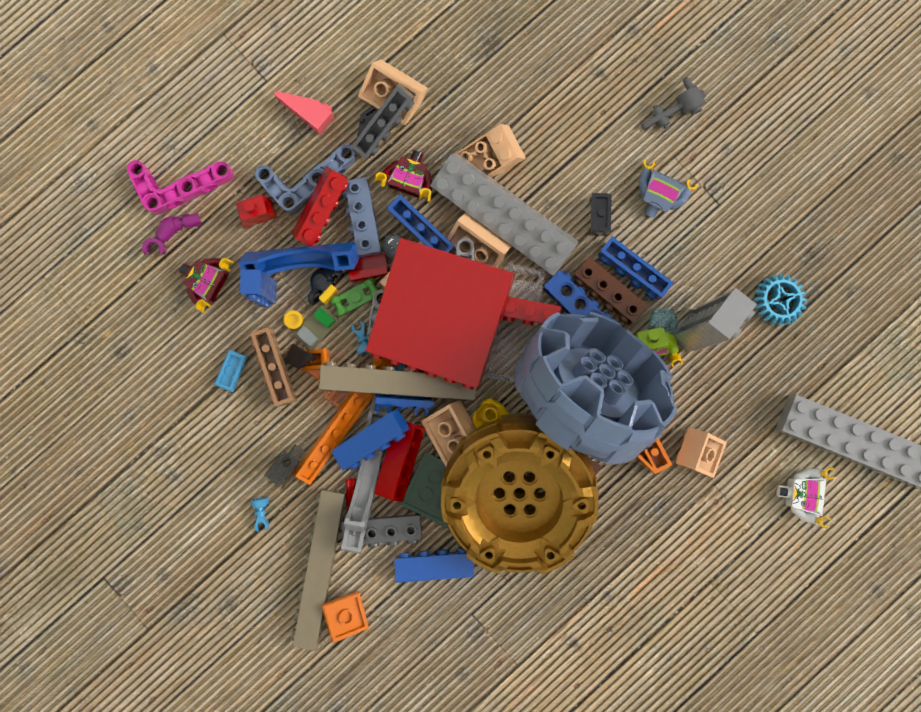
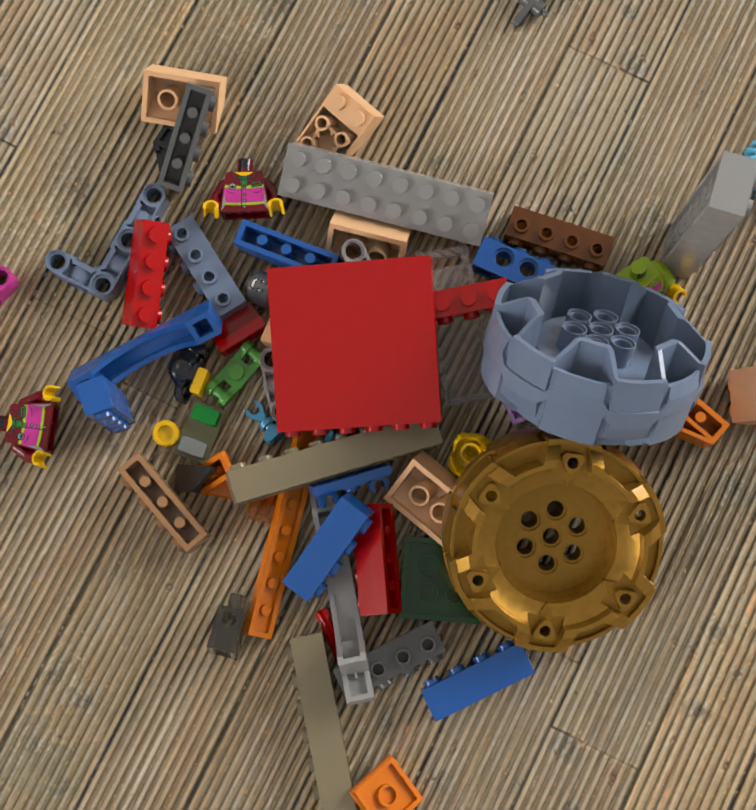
camera: 20 degrees left, 5 degrees down
(231, 370) = (109, 530): dark azure plate -> none
(255, 211) = (63, 313): red torso -> none
(259, 503) = (213, 692): dark azure piece -> none
(310, 111) = (85, 161): coral slope -> none
(600, 214) = (507, 148): black panel -> none
(635, 269) = (579, 199): blue brick -> none
(662, 191) = (571, 90): sand blue torso -> none
(663, 318) = (640, 245): clear light blue brick -> none

